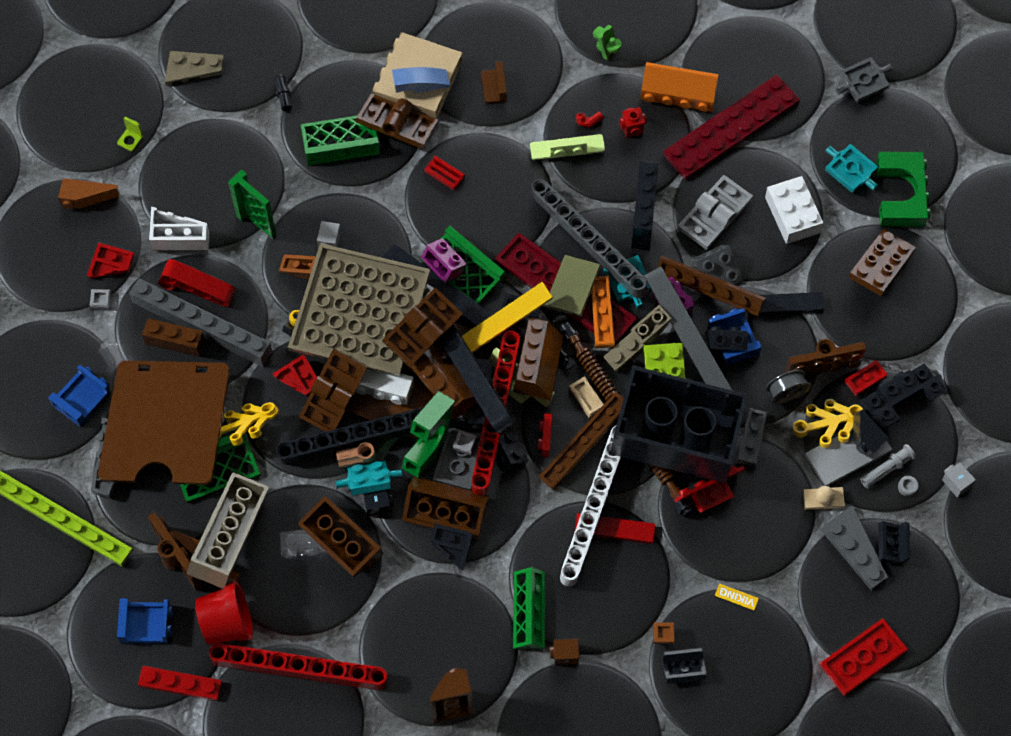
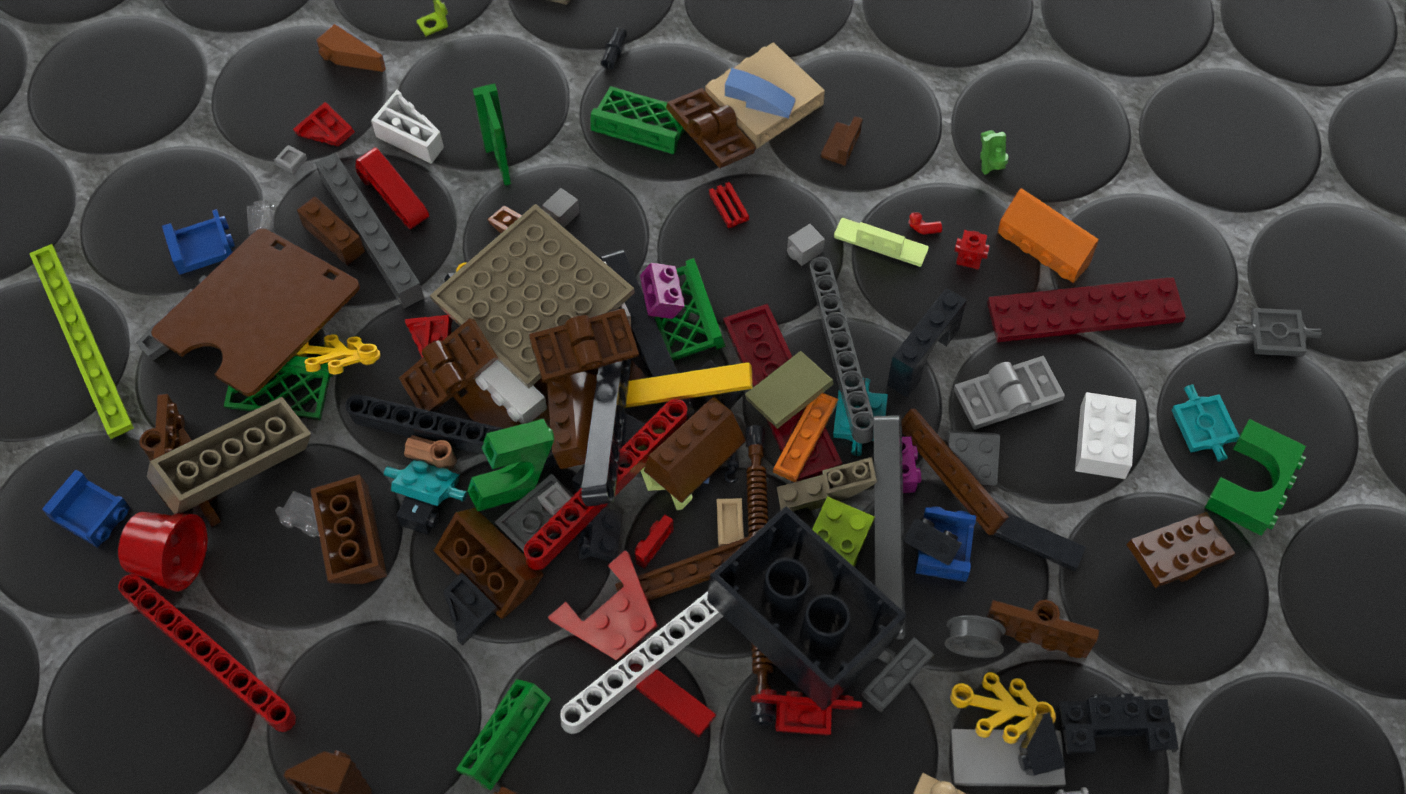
camera: 30 degrees right, 5 degrees down
(180, 683) = (75, 599): red plate -> none
(517, 176) = (805, 244): none -> light grey brick
(557, 500) = (618, 622): none -> red wing
(866, 378) = (1082, 678): red plate -> none

